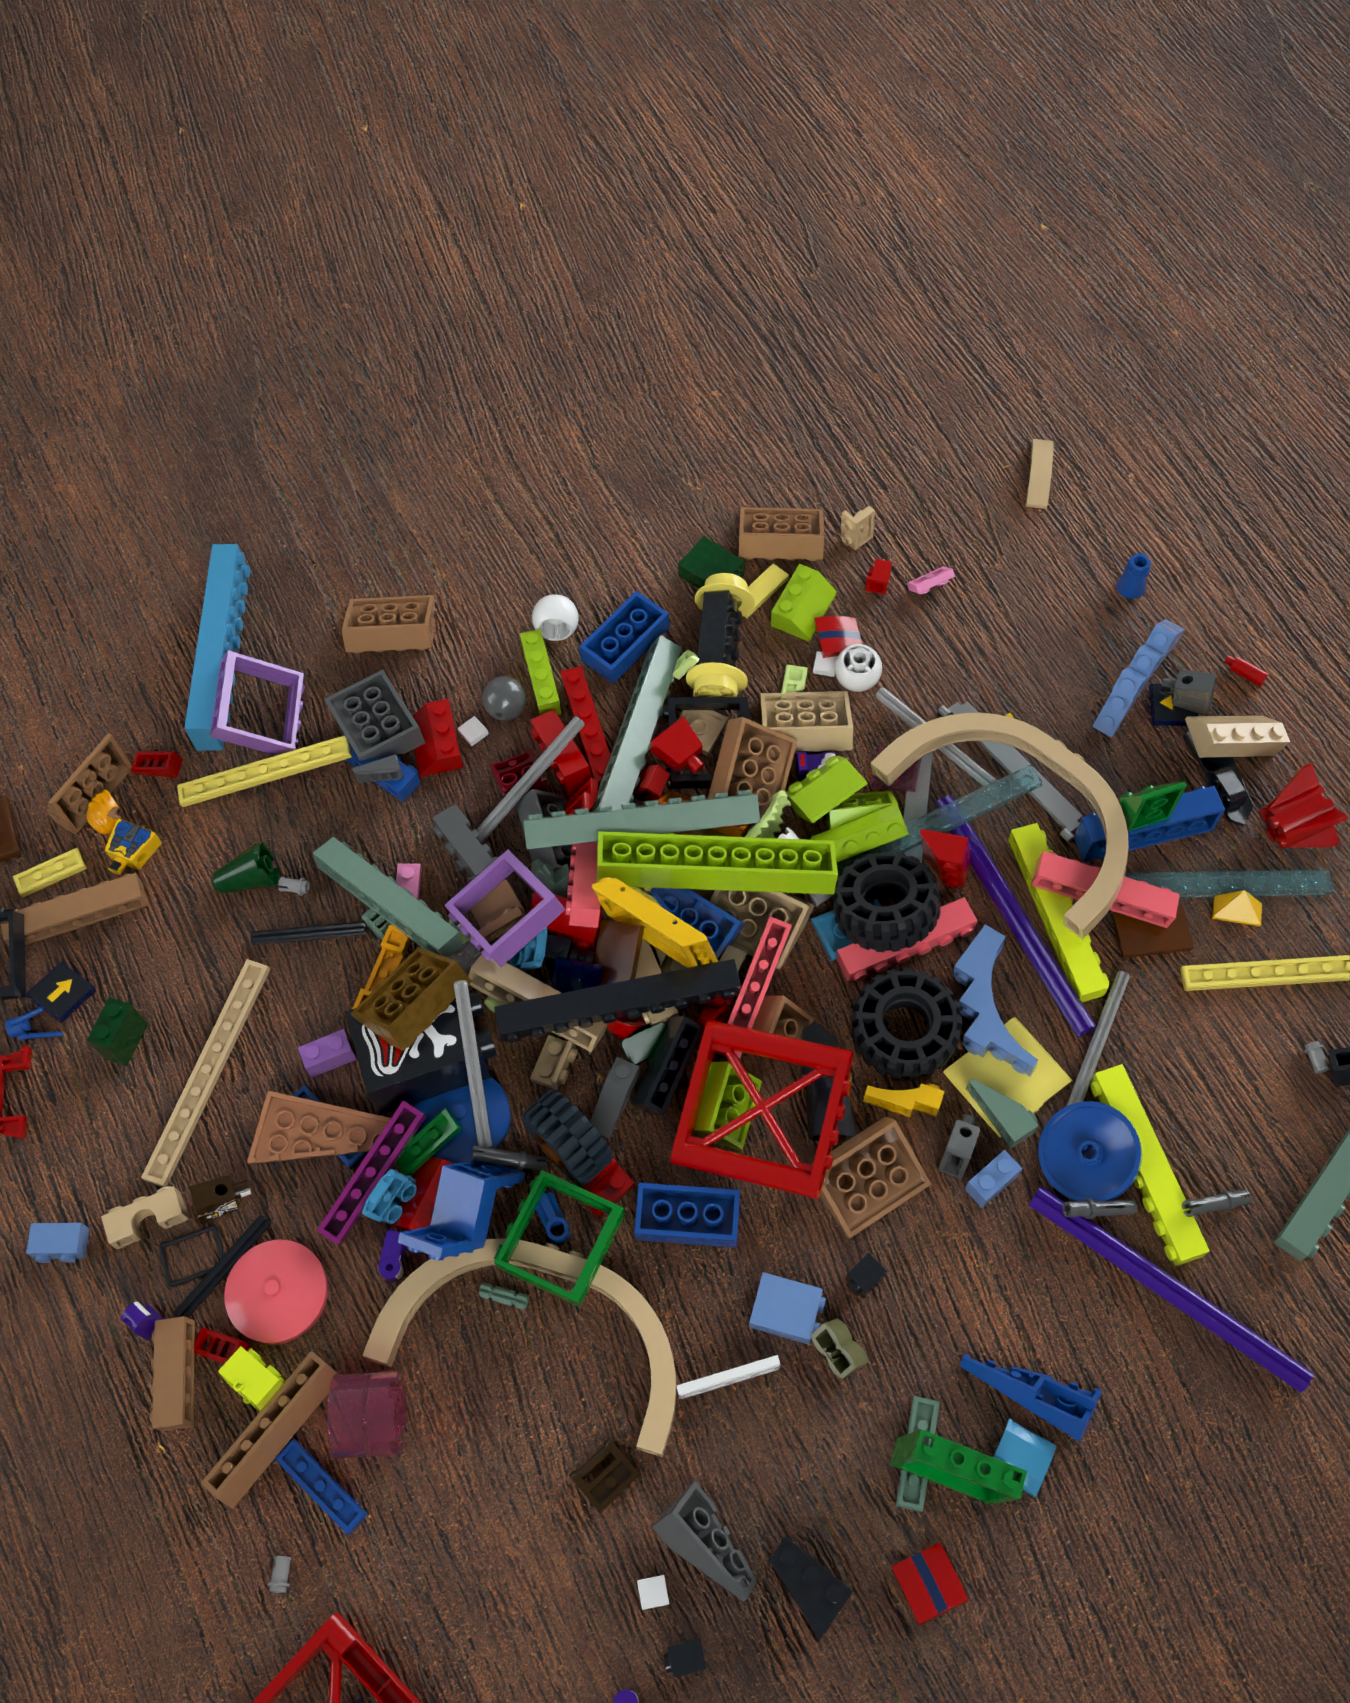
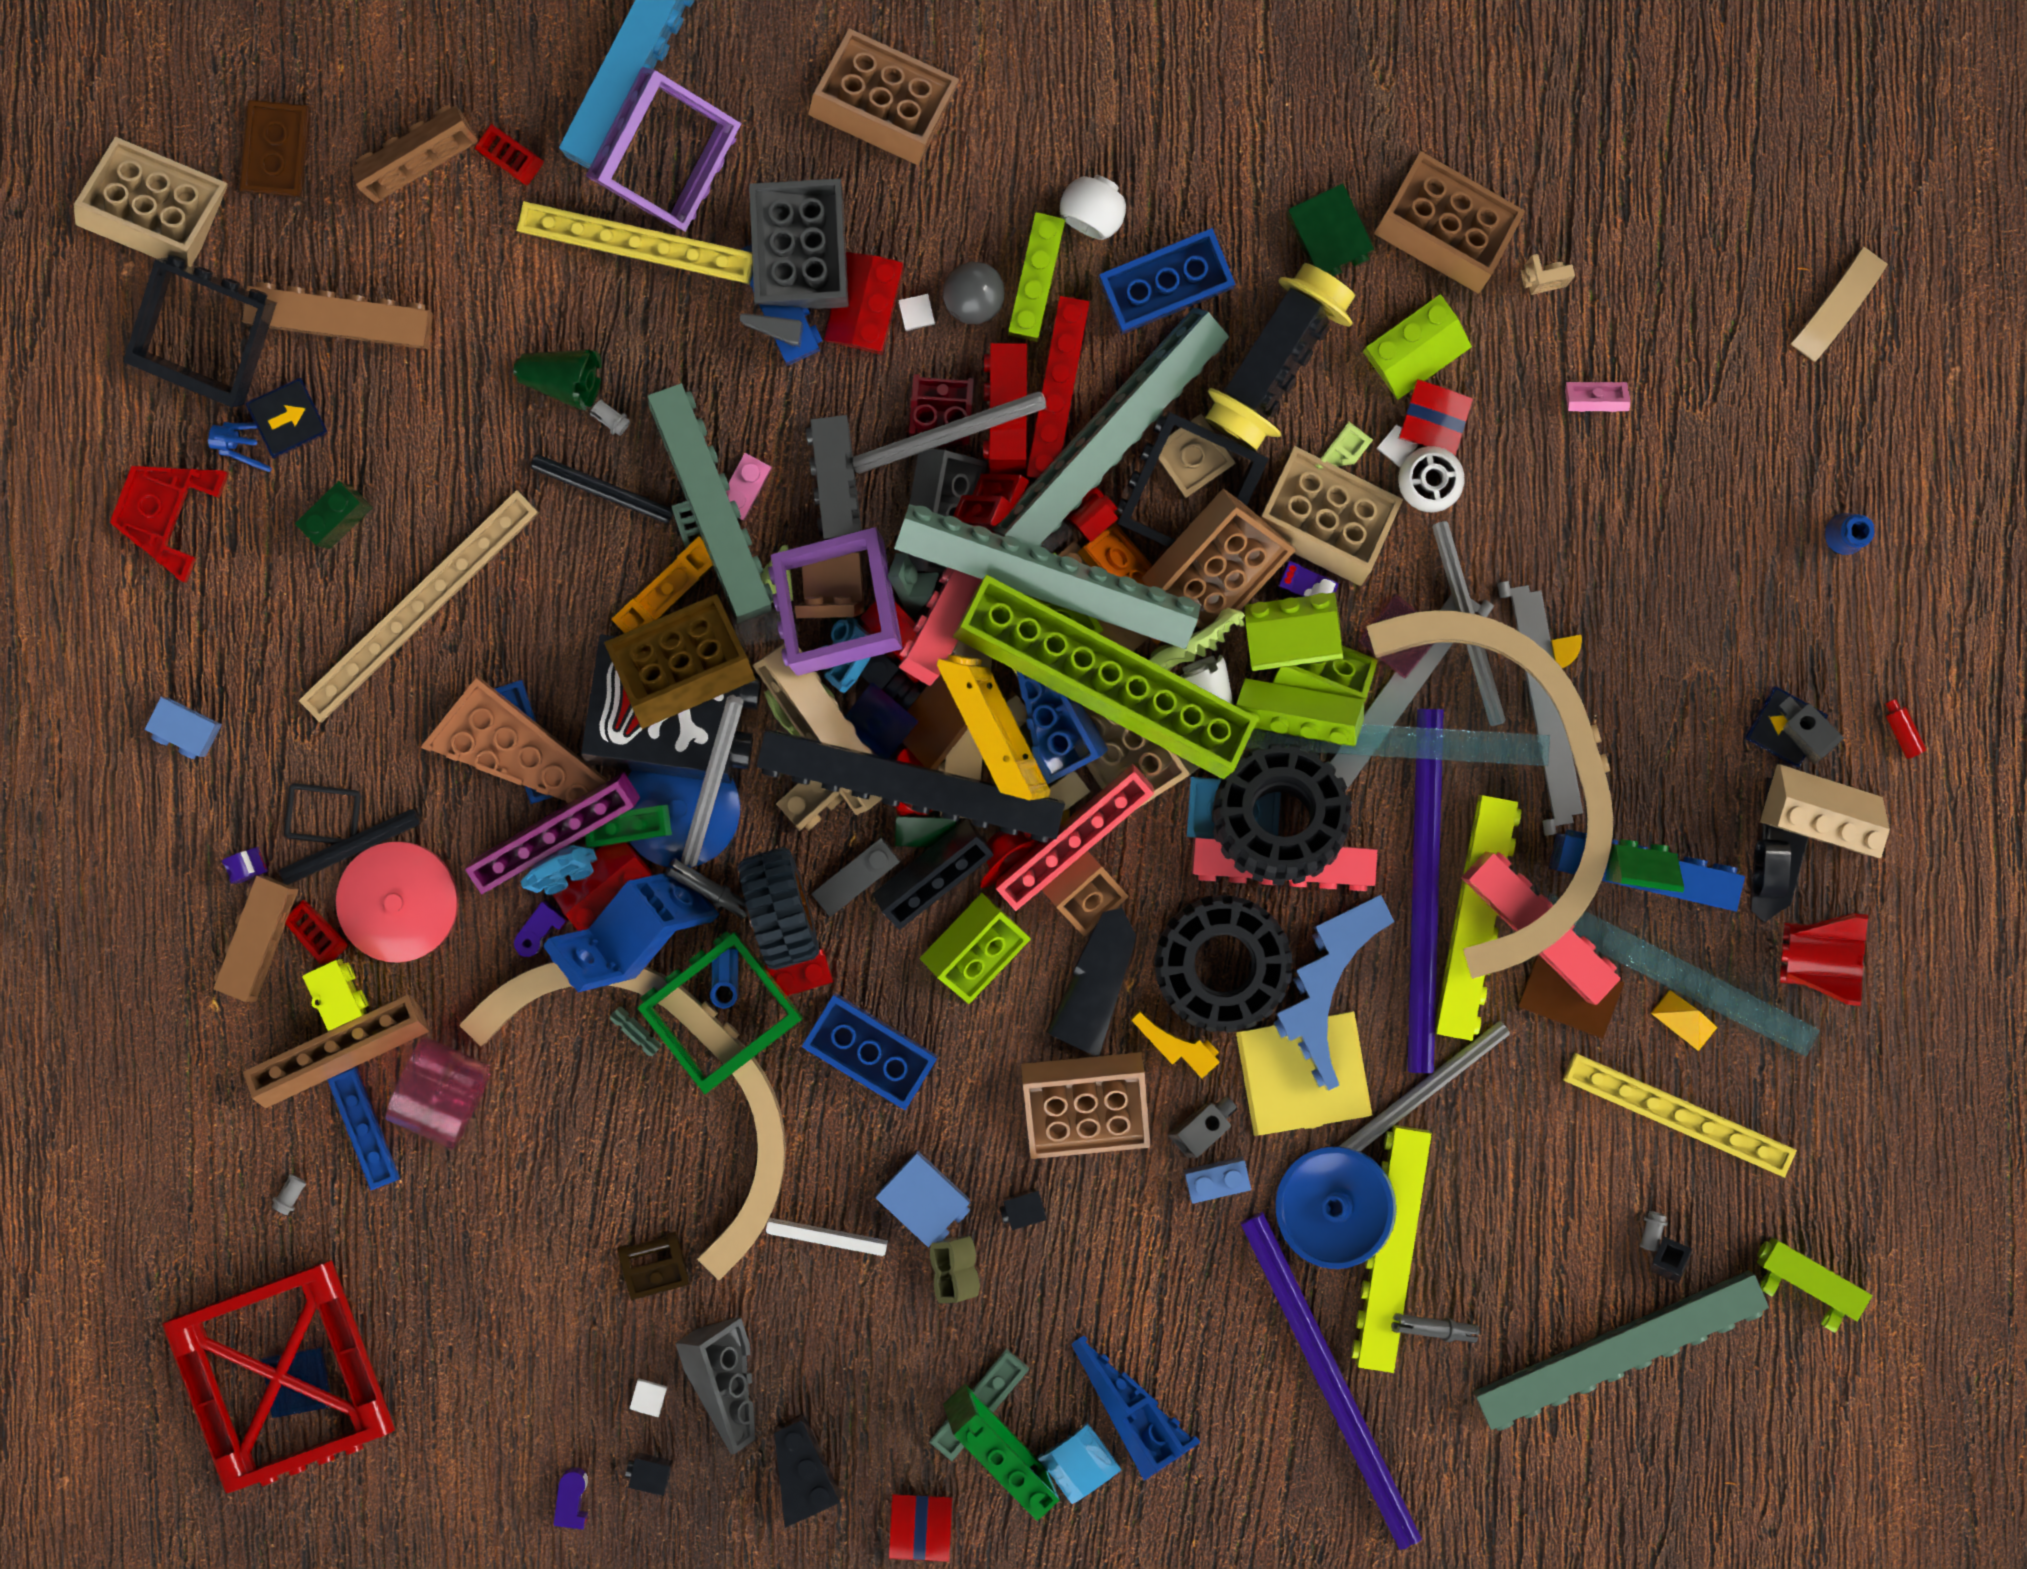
camera: 25 degrees right, 25 degrees up
(49, 872) = (326, 243): light yellow tile -> none
(102, 812) = (418, 201): light orange hair -> none
(123, 1222) = (259, 745): tan arch -> none
(130, 846) = (434, 262): torso -> none
(217, 1197) = (359, 770): dark brown torso -> none
(327, 1053) = (561, 658): medium lavender brick -> none
(679, 747) = (1147, 491): red torso -> none
(684, 664) = (1217, 371): yellowish green tile -> none
(766, 585) = (1384, 291): light yellow tile -> none
(797, 1178) = (1100, 979): red piece -> none
(879, 576) = (1536, 356): red brick -> none
(947, 856) = (1381, 797): red slope -> none
(1005, 1114) = (1272, 1125): sand green slope -> none
(1089, 1208) = (1298, 1266): dark grey pin -> none
(1136, 675) = (1768, 673): medium blue arch -> none

